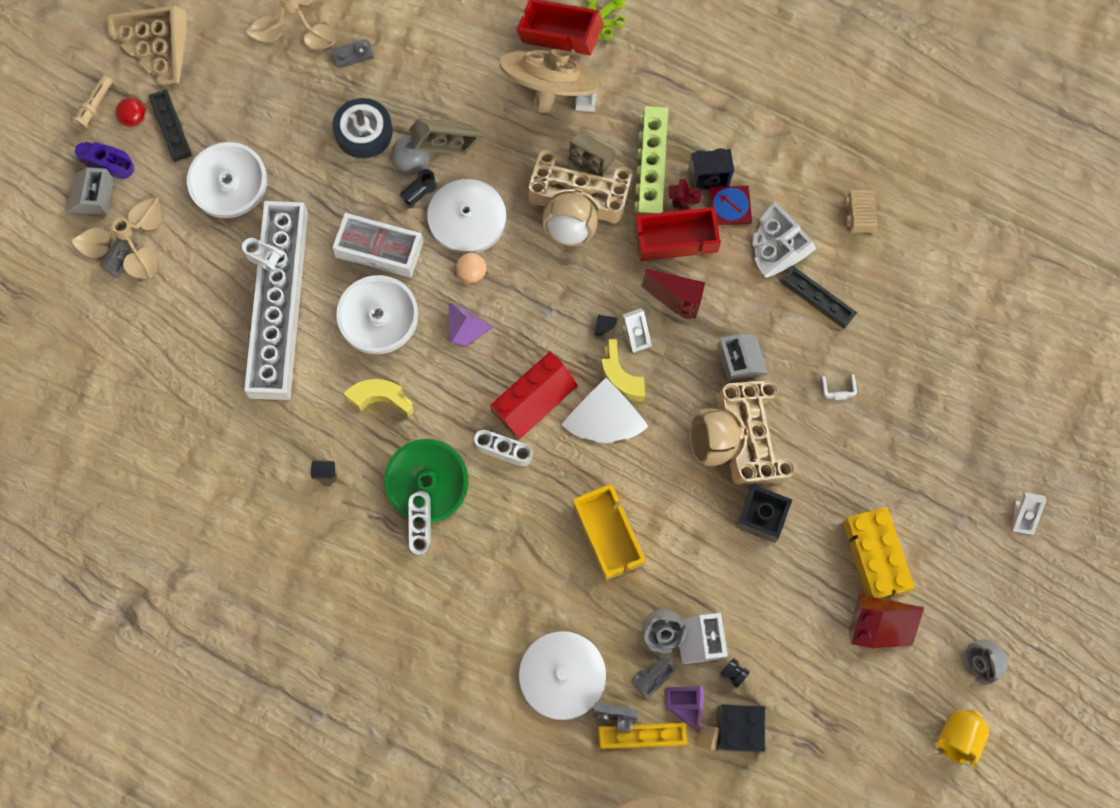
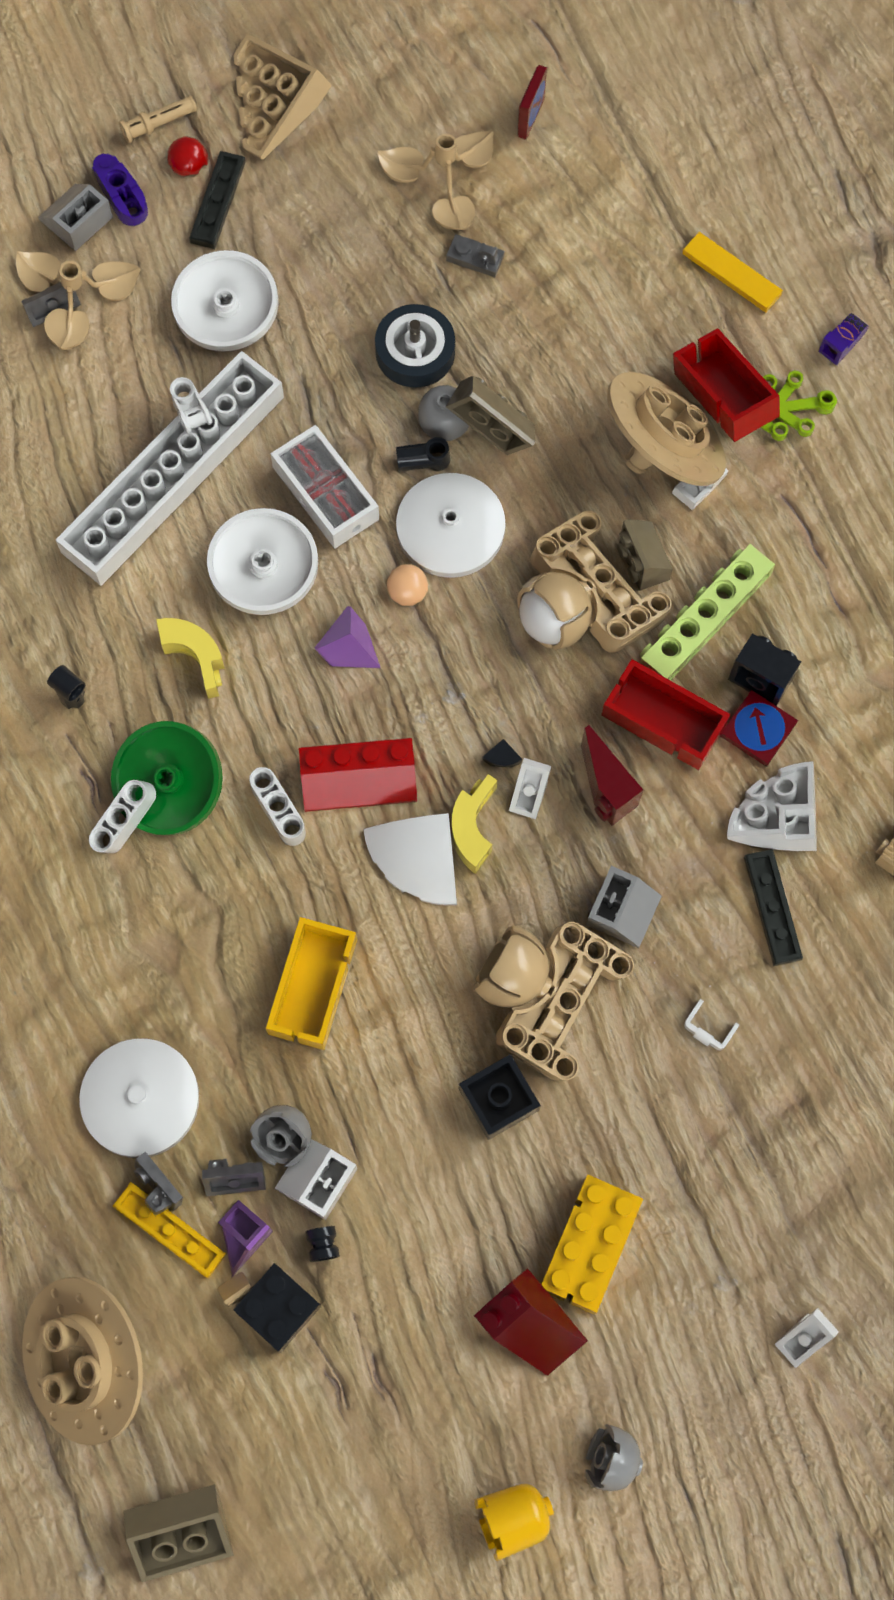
camera: 40 degrees right, 0 degrees up
(683, 195) = (710, 676): dark red hips -> none

